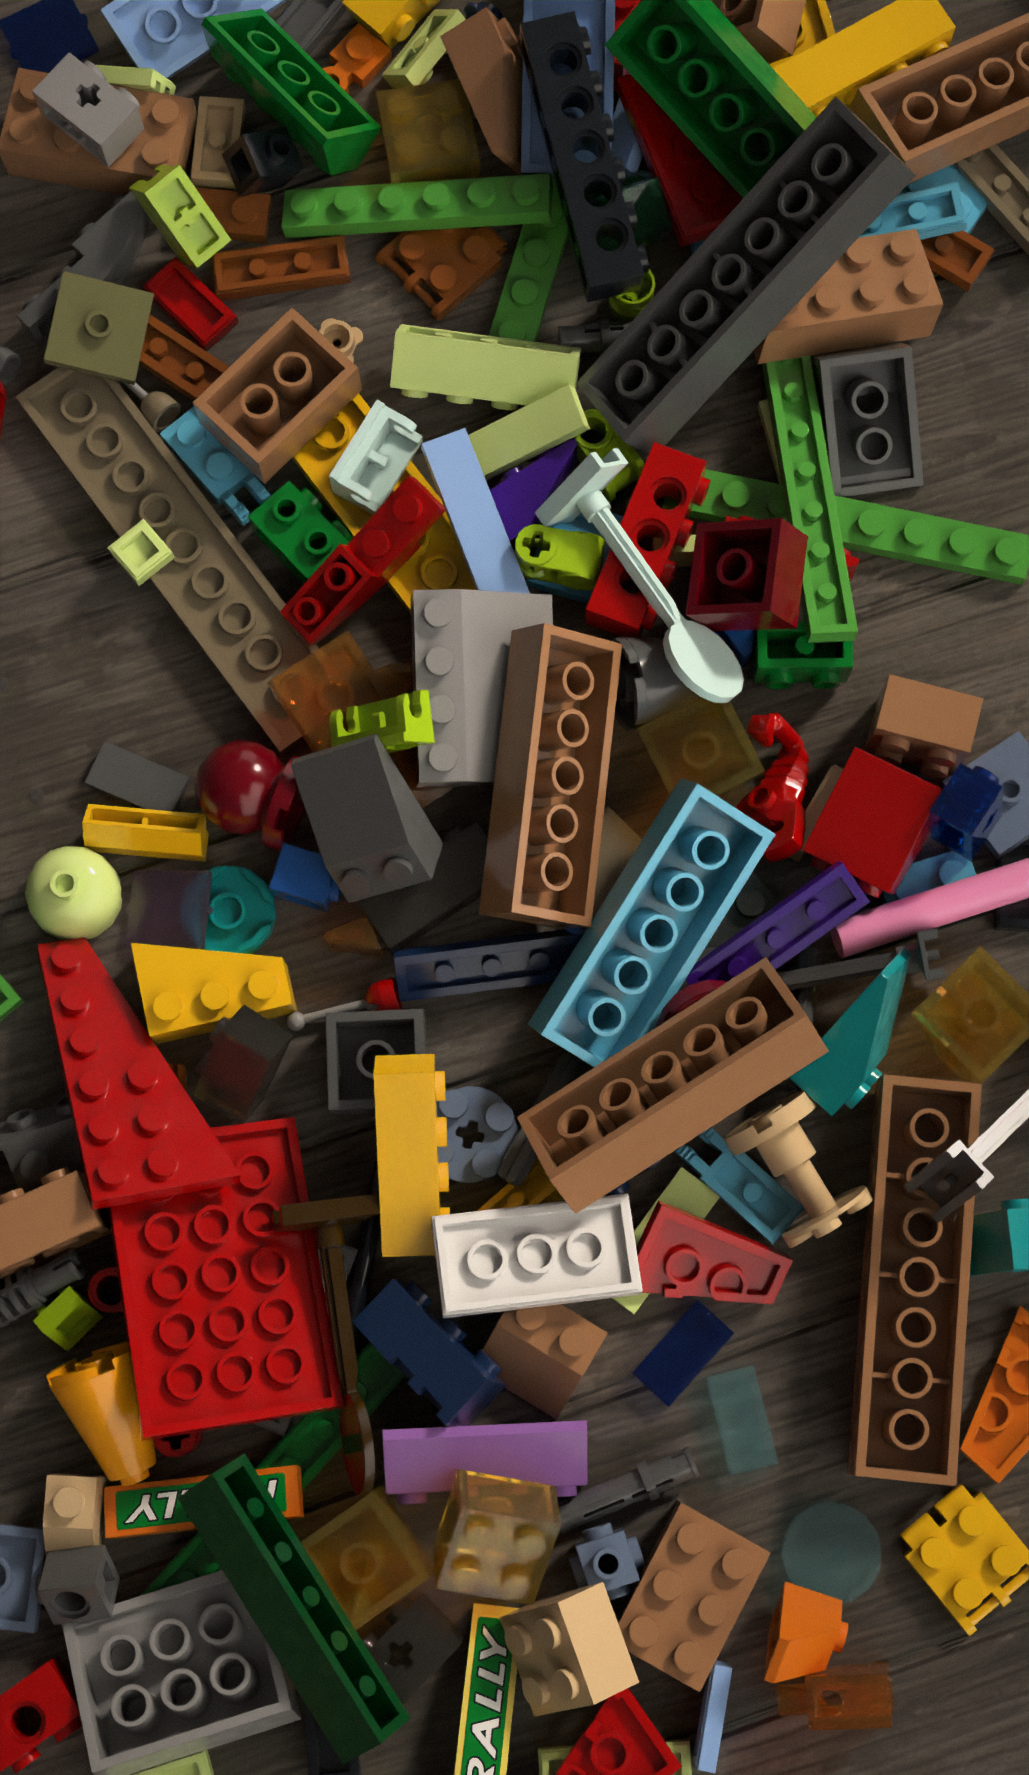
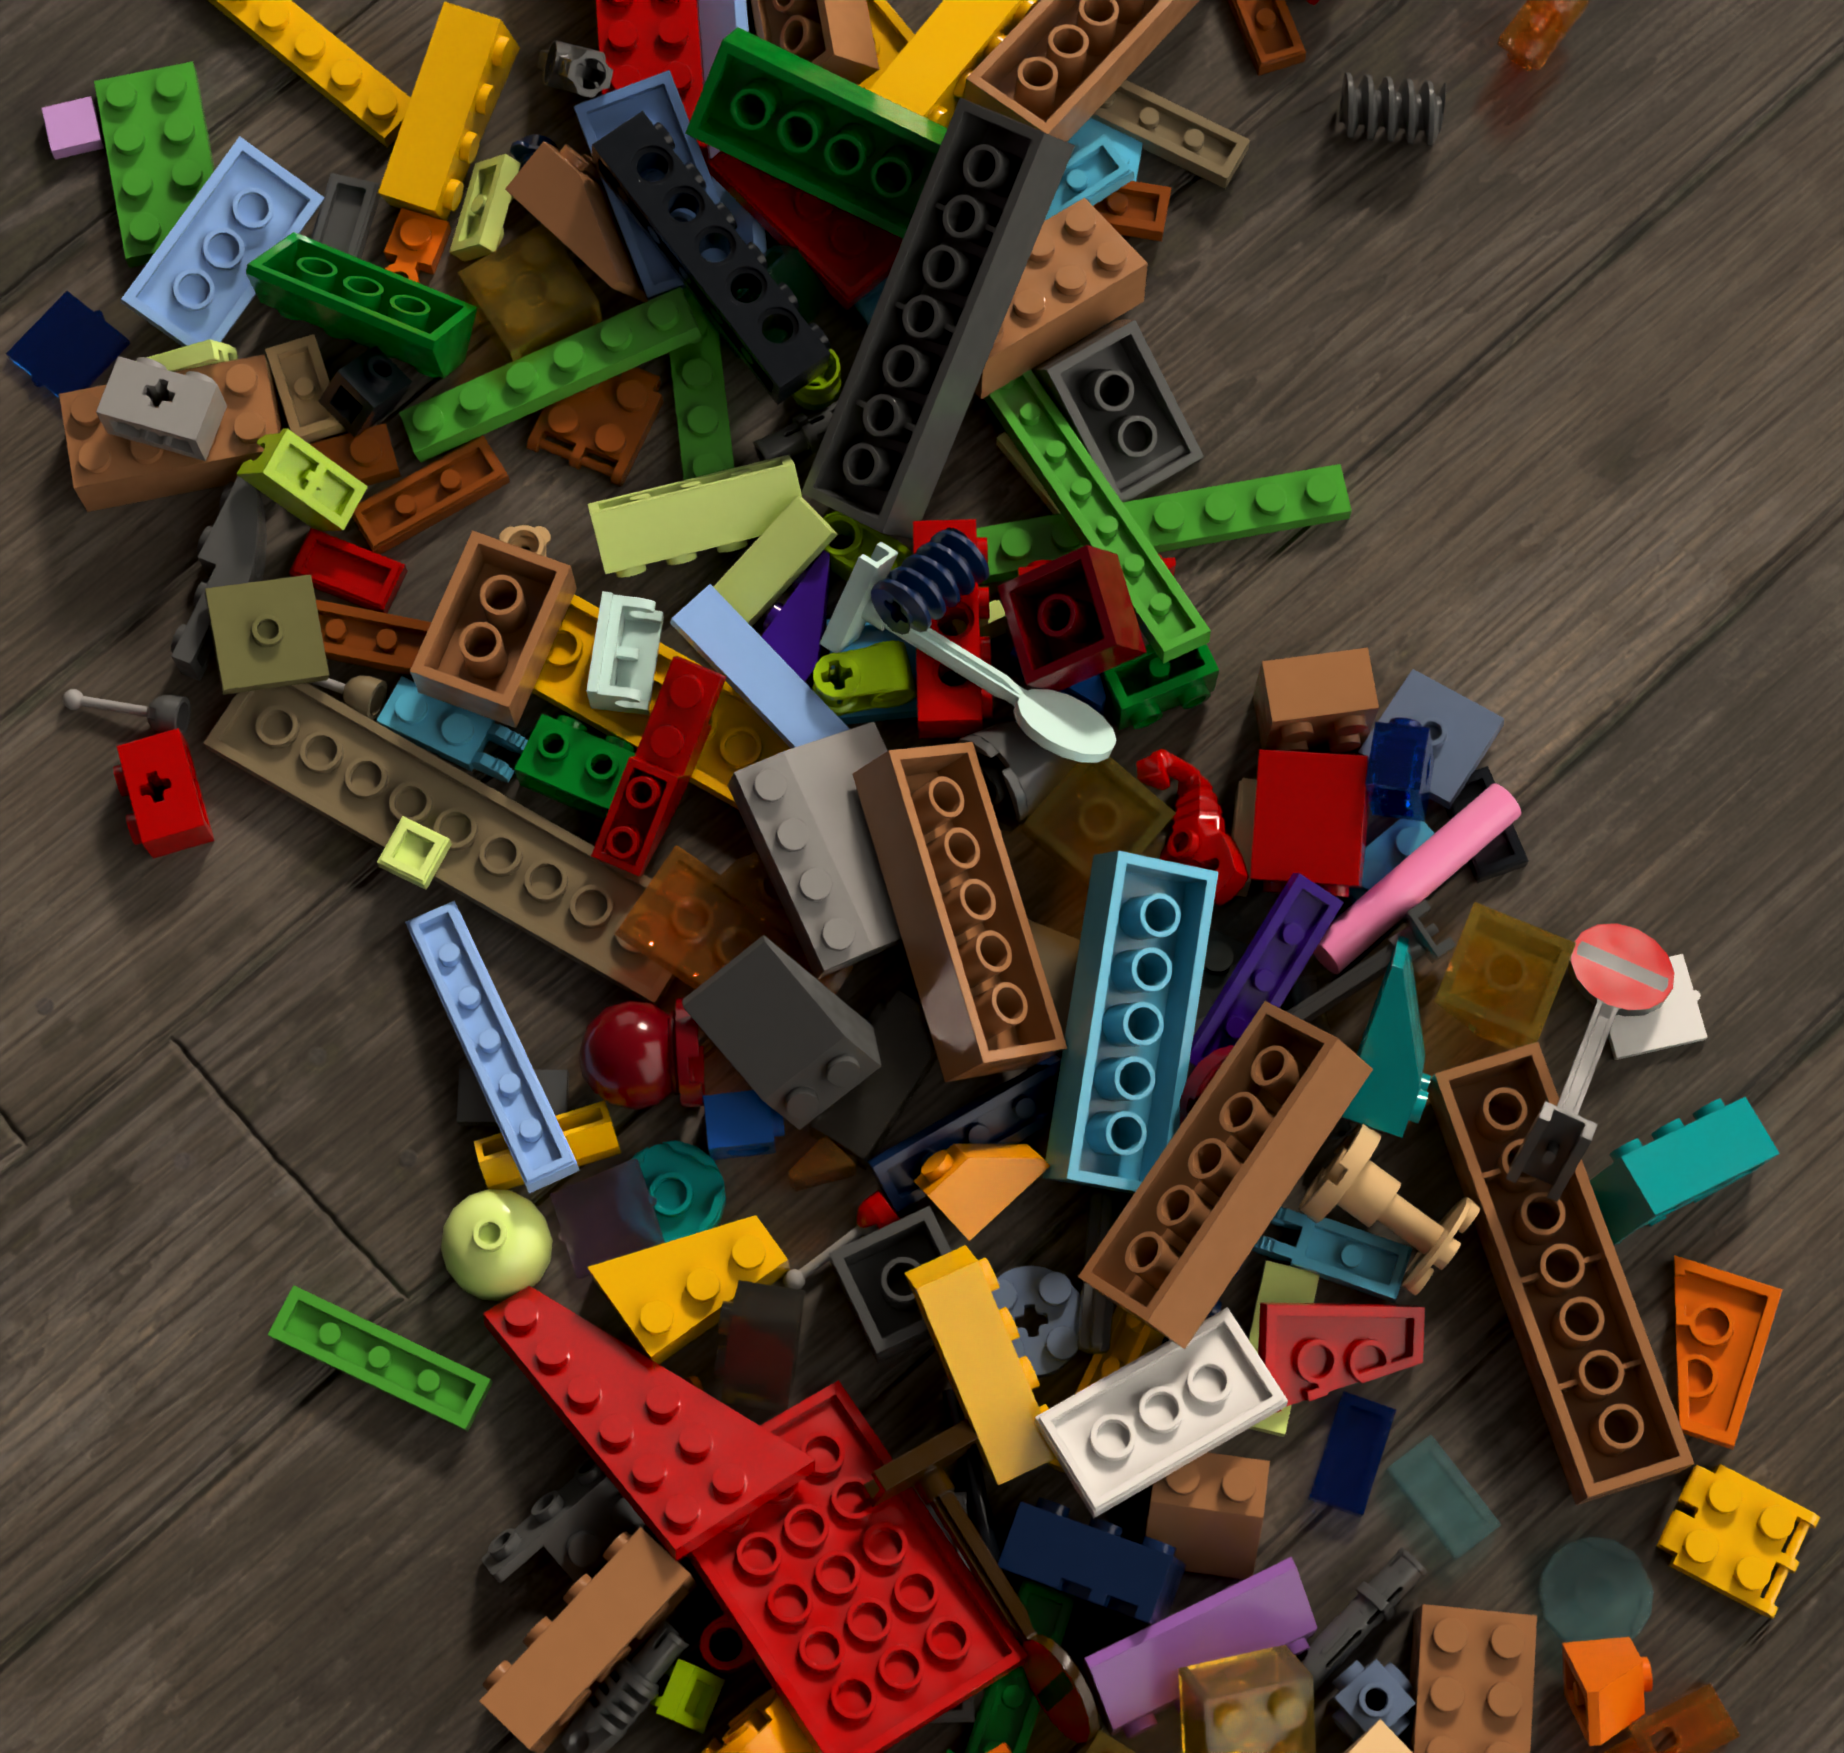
camera: 25 degrees left, 5 degrees down
(134, 735) = (492, 1047): none -> light blue tile
(397, 721) = (779, 912): lime hinge -> none
(474, 1004) = (978, 1181): none -> light orange slope
(641, 495) = (929, 582): none -> dark blue piece

